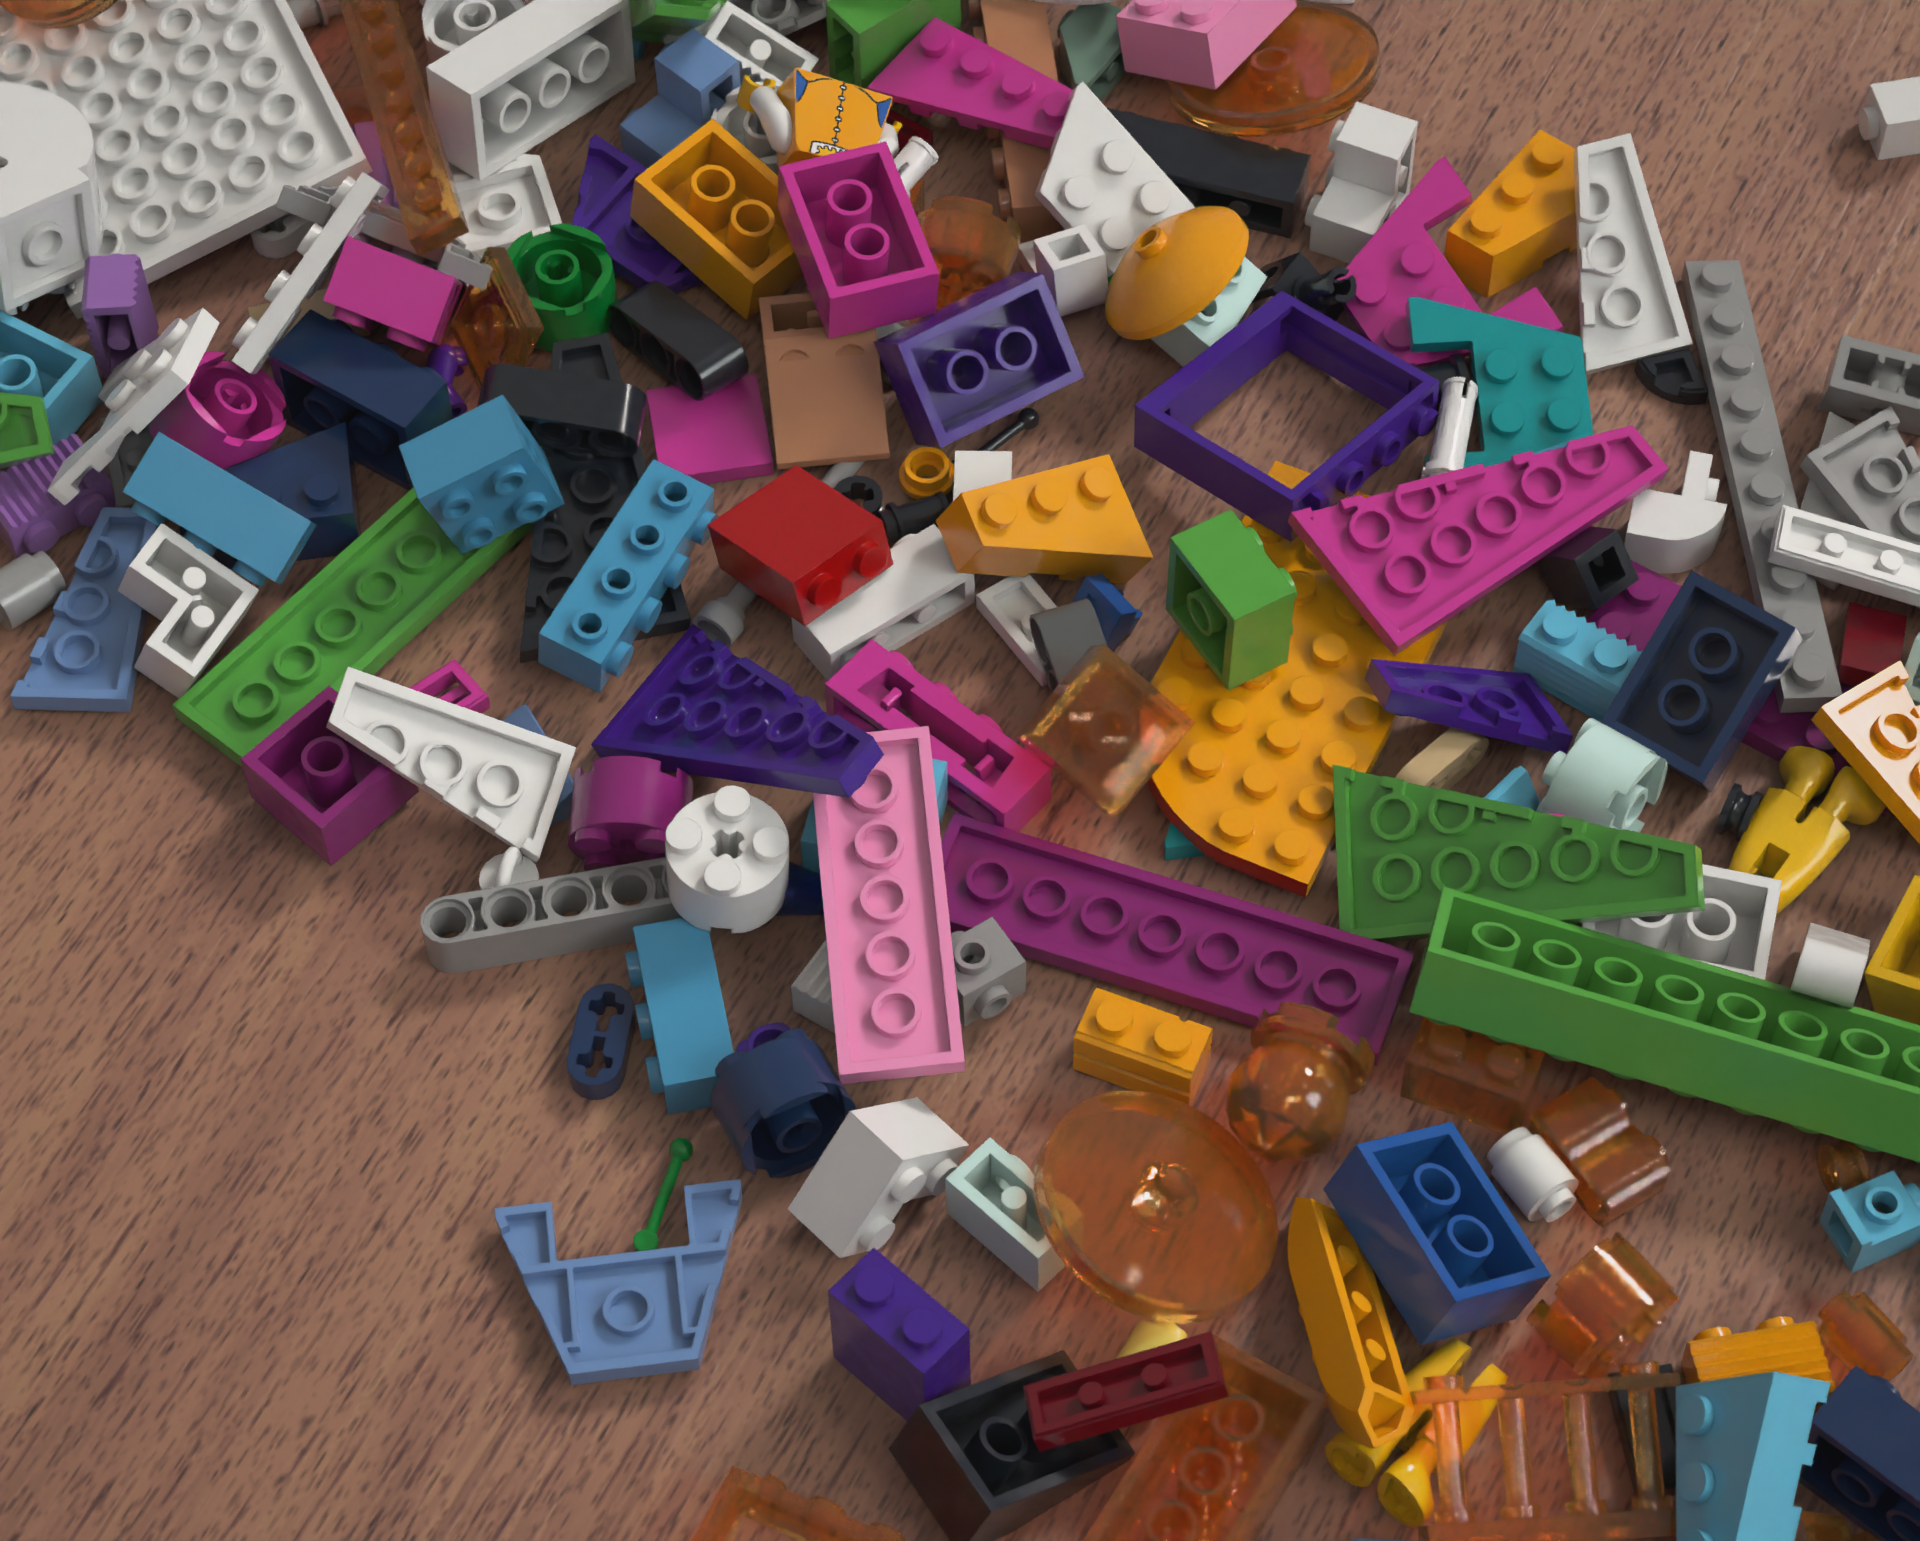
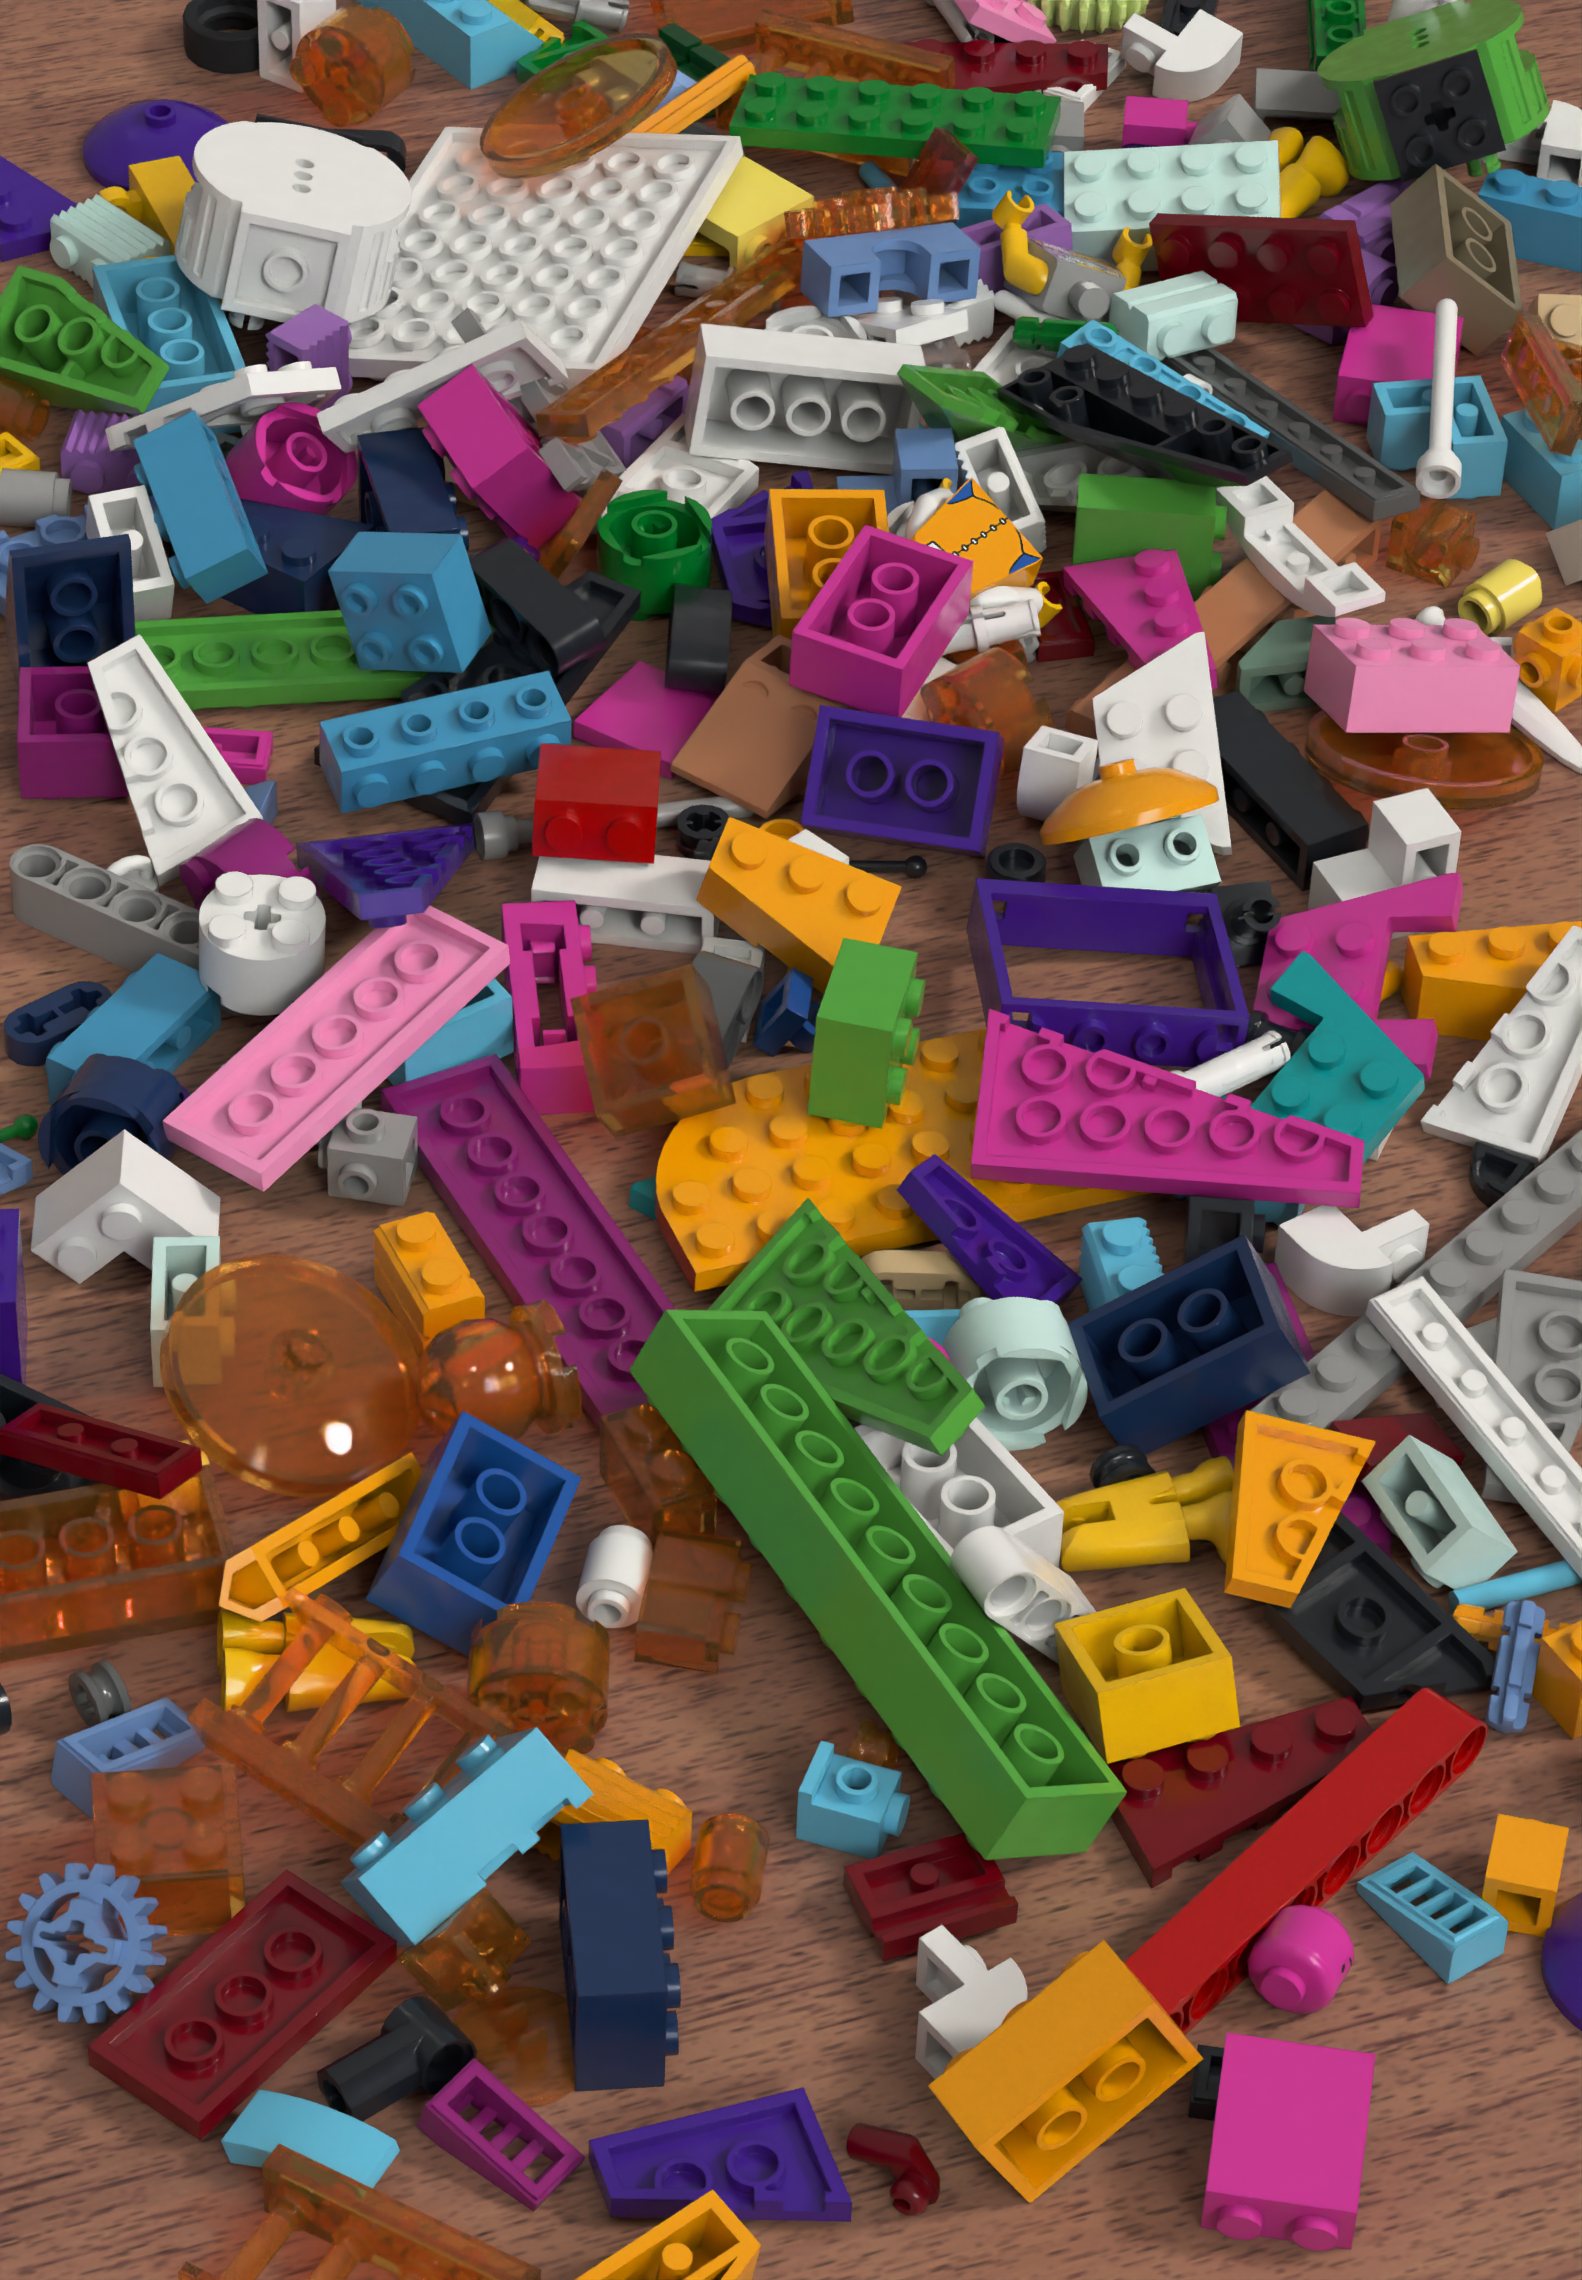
camera: 40 degrees right, 15 degrees down
(246, 691) = (68, 602): none -> dark blue slope
(1102, 367) = (1016, 863): none -> black tile

